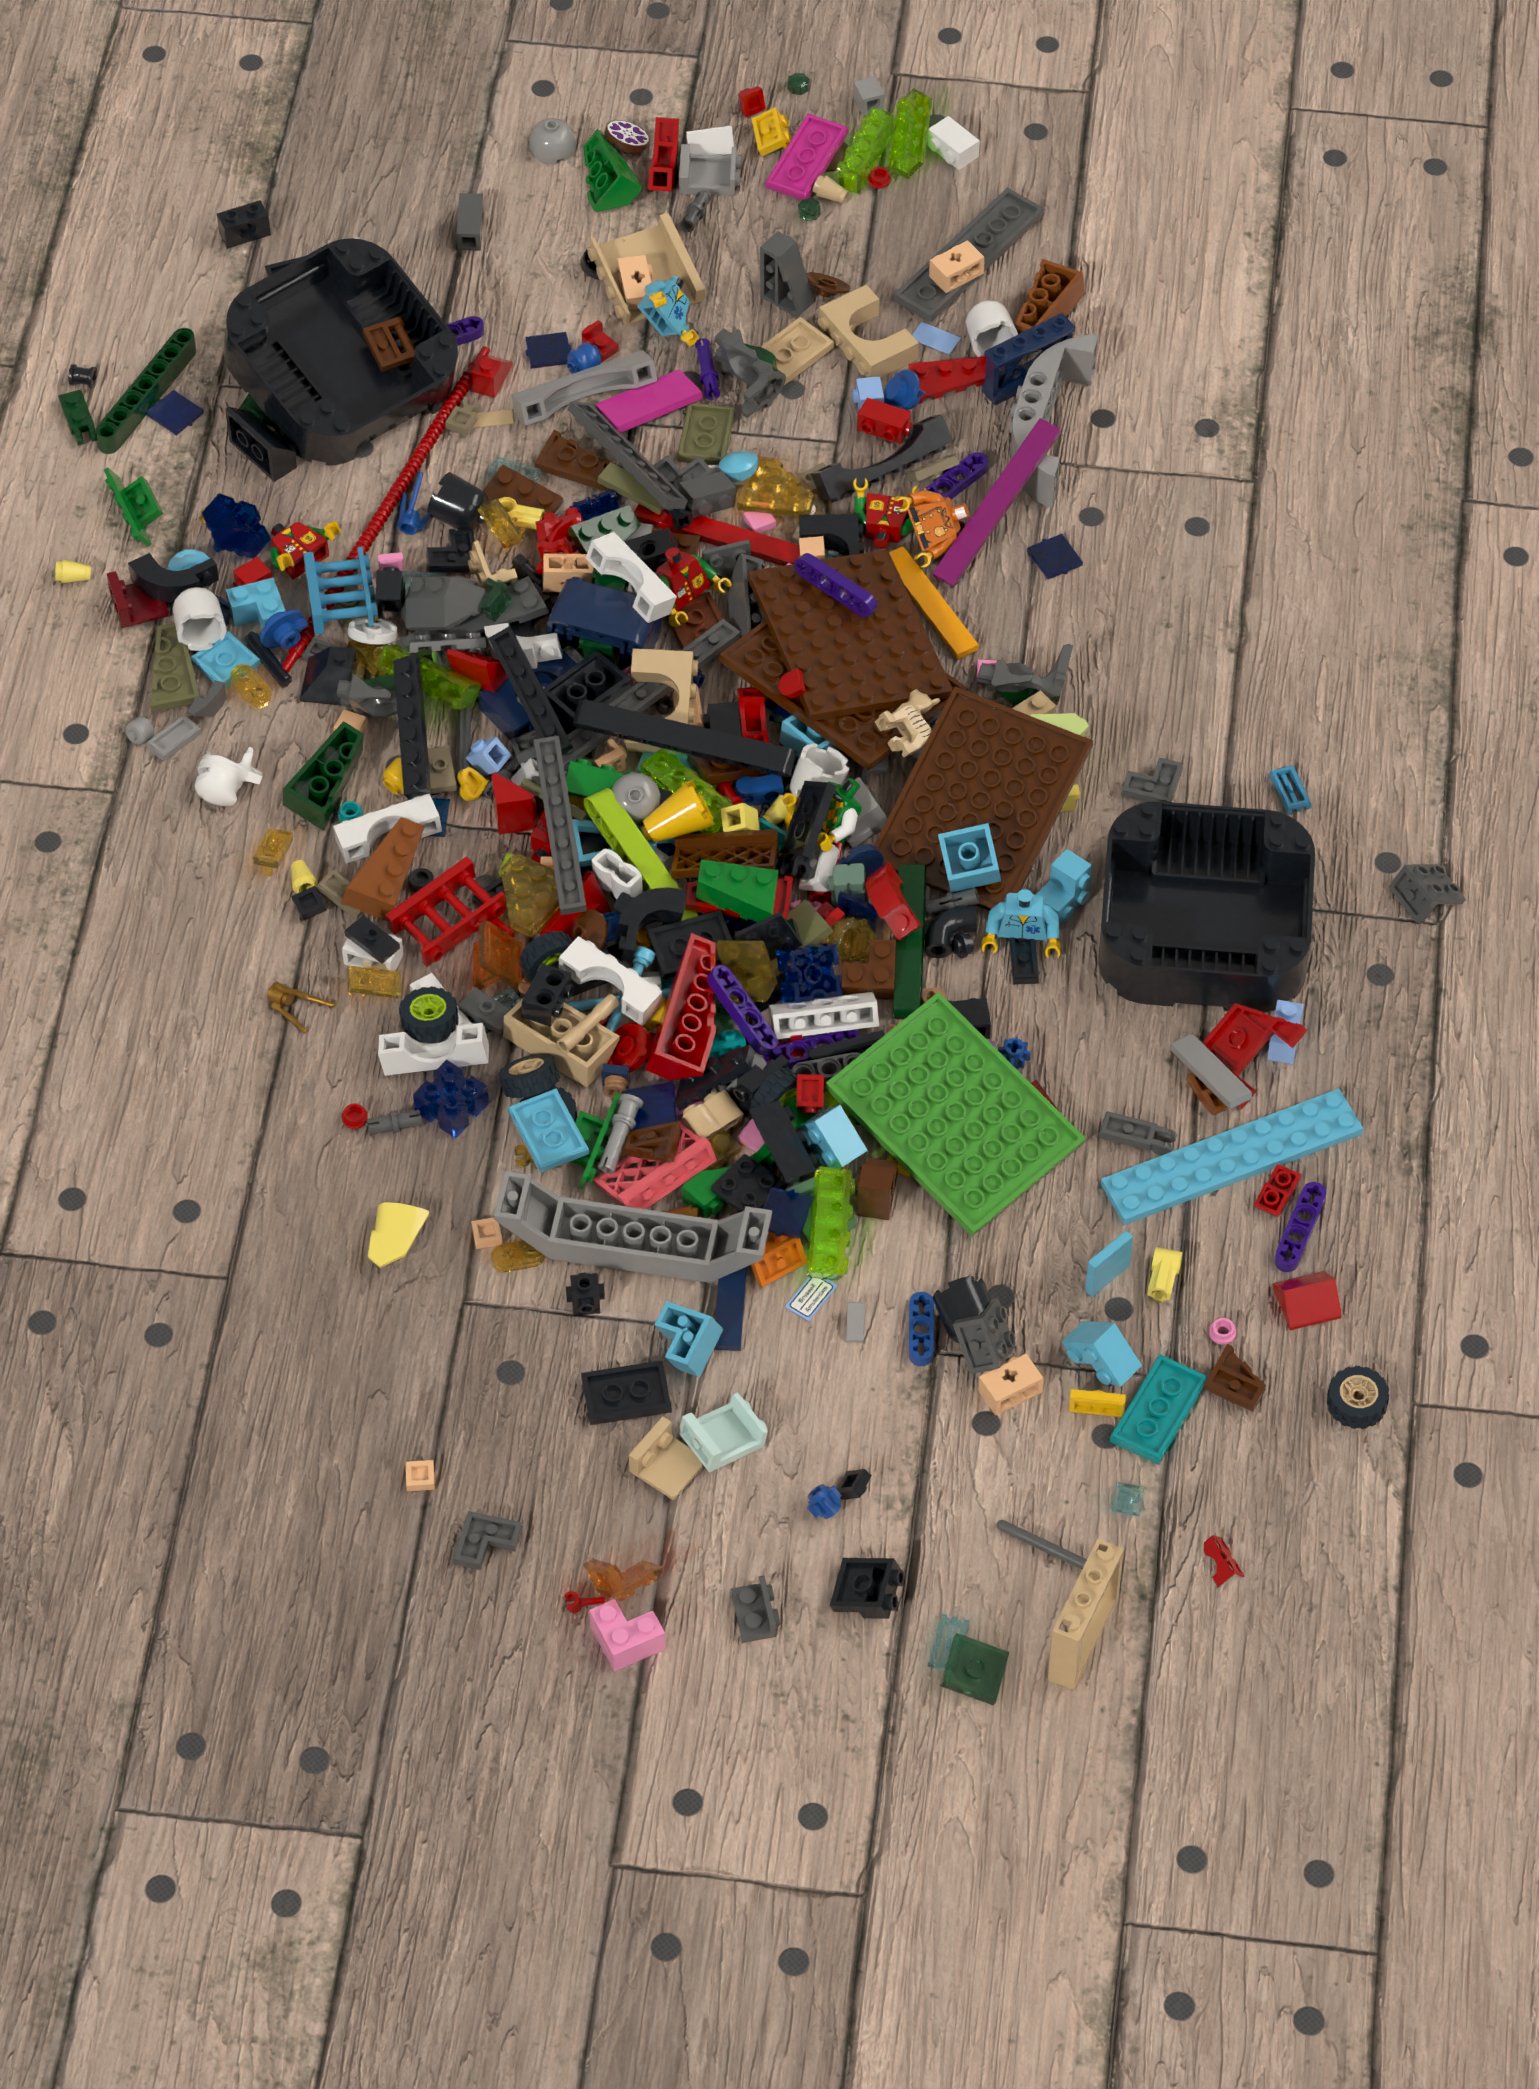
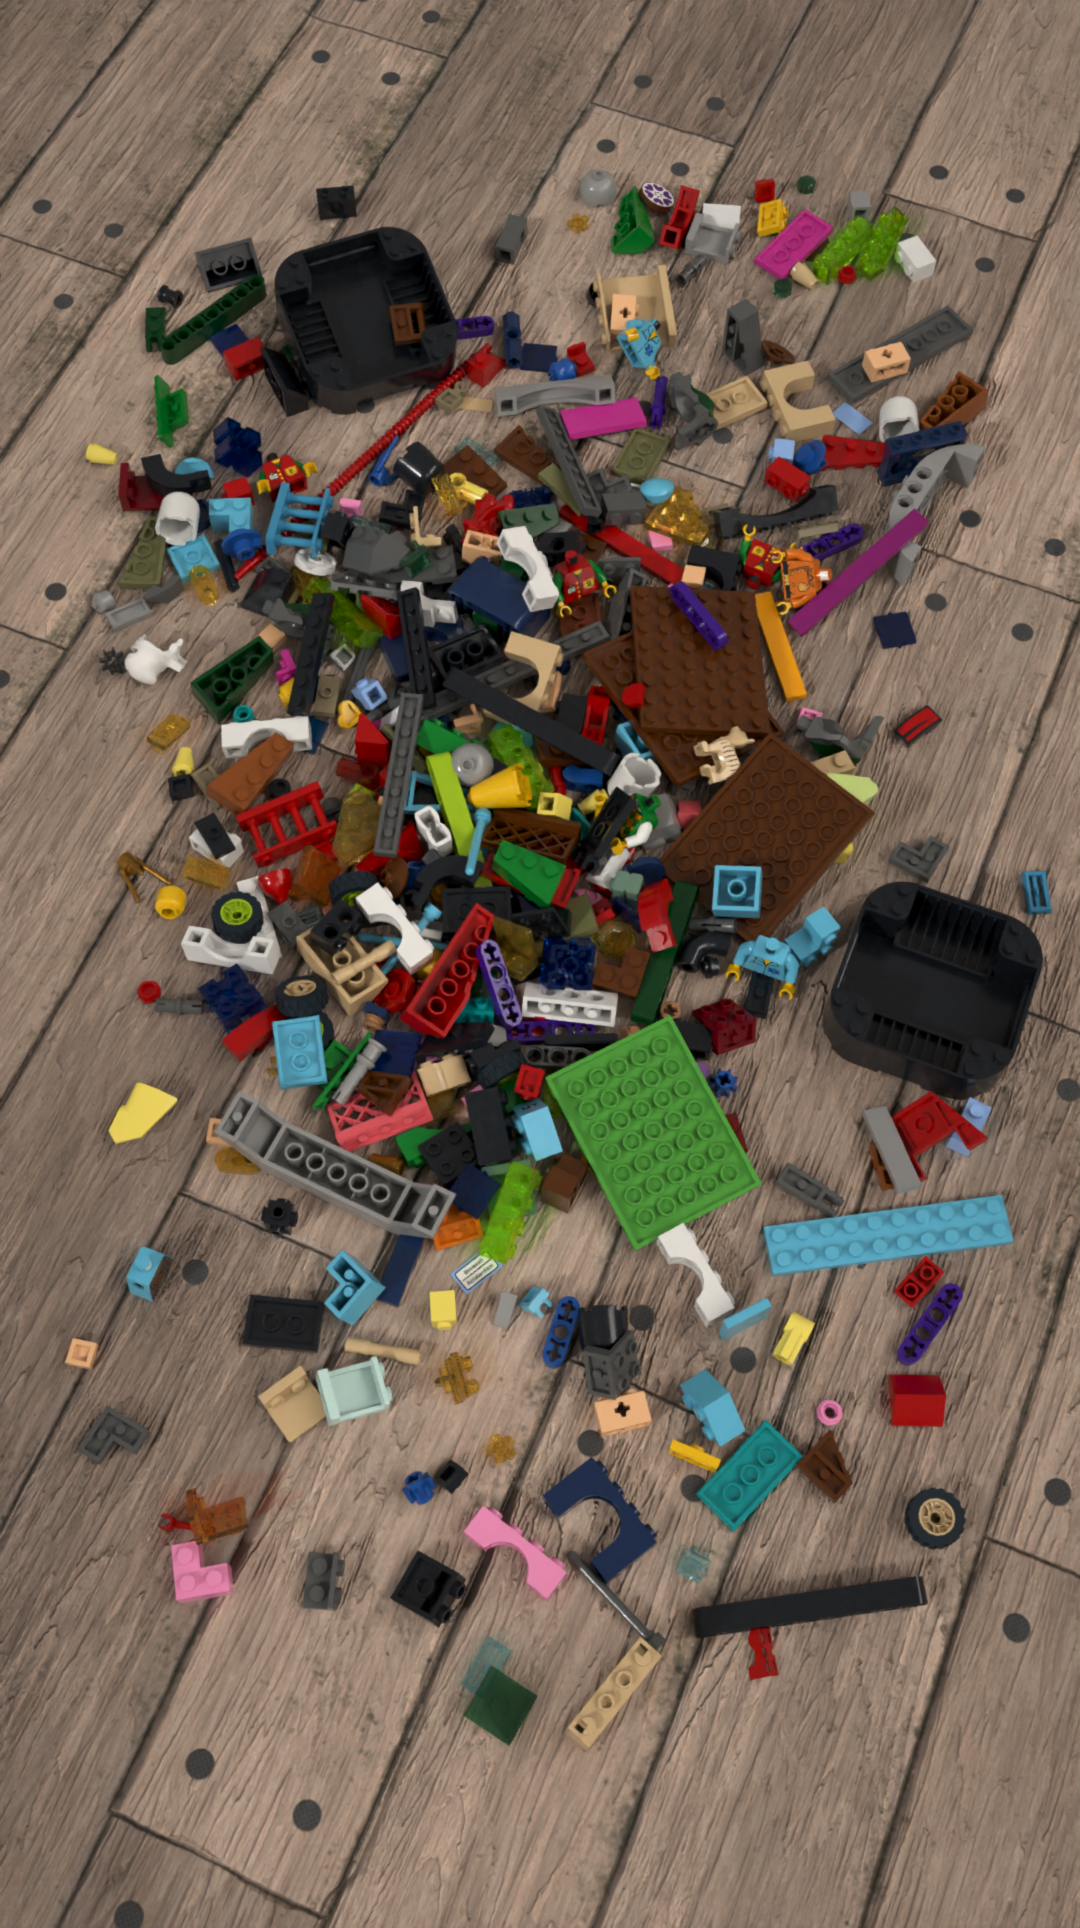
camera: 15 degrees right, 10 degrees up
(138, 323) = (227, 264): none -> black slope
(179, 796) = (108, 657): none -> black gear
(202, 426) = (244, 358): none -> red brick
(344, 1020) = (170, 902): none -> yellow head
(383, 751) = (288, 667): none -> dark pink bracket
(439, 726) = (341, 657): none -> light grey slope
(456, 974) = (276, 884): none -> red helmet
(465, 1371) = (148, 1271): none -> medium azure torso
(487, 1127) = (253, 1033): none -> red slope
(506, 841) = (359, 773): none -> clear red piece
(512, 336) = (512, 339): none -> dark blue piece
(541, 186) = (578, 223): none -> clear yellow plant
(665, 851) = (481, 819): none -> medium azure piece
(758, 1390) = (366, 1347): none -> tan piece
(791, 1334) = (443, 1309): none -> light yellow brick
(824, 1394) = (453, 1378): none -> clear yellow hips
(882, 1305) = (533, 1300): none -> medium azure tile
(887, 796) = (687, 812): none -> coral tile
(896, 1450) = (501, 1449): none -> clear yellow plant
(912, 1521) = (490, 1531): none -> bright pink arch
(1002, 1453) = (591, 1482): none -> dark blue arch
(1005, 995) = (729, 1023): none -> dark red bracket
(1021, 1219) = (680, 1248): none -> white arch
(1110, 649) = (917, 725): none -> slope
(1256, 1505) = (809, 1606): none -> black beam

